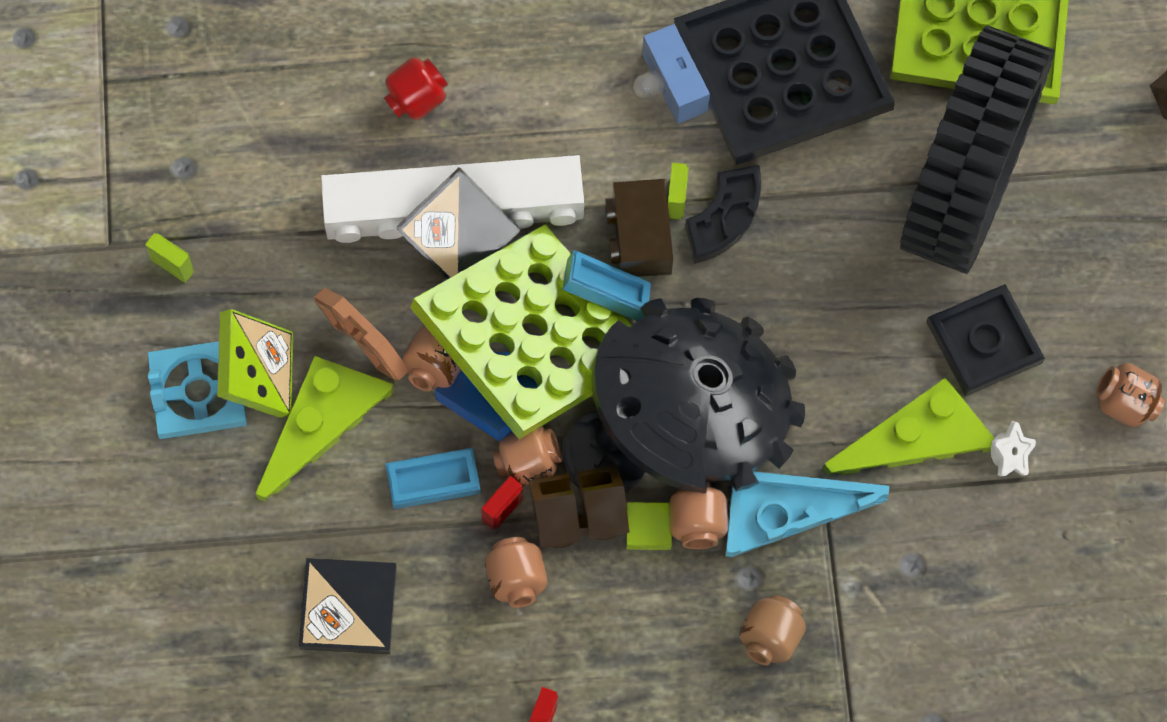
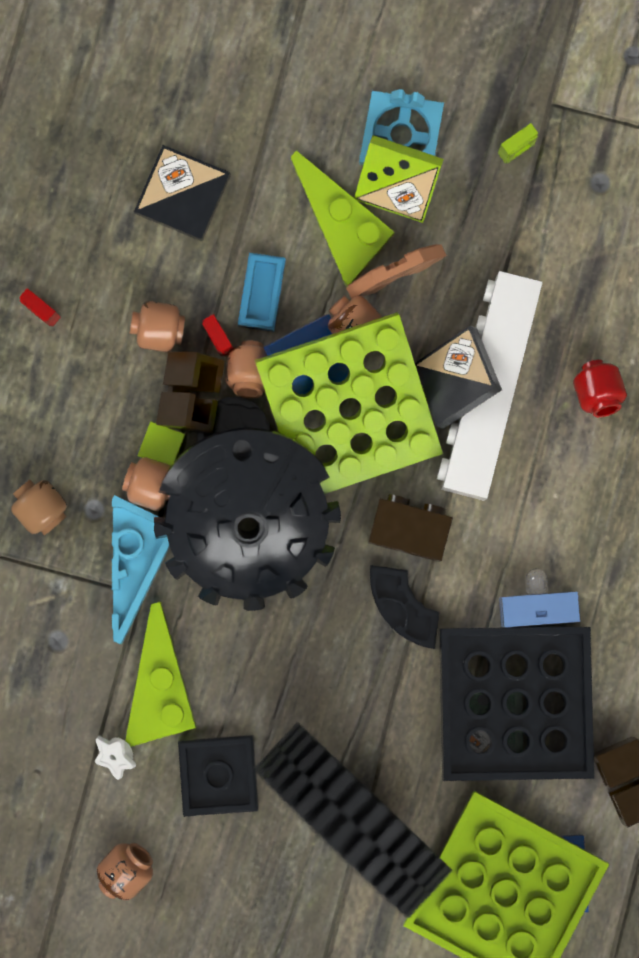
camera: 120 degrees right, 15 degrees up
(606, 285) = (368, 481): dark azure tile -> none
(677, 190) = (432, 571): lime tile -> none

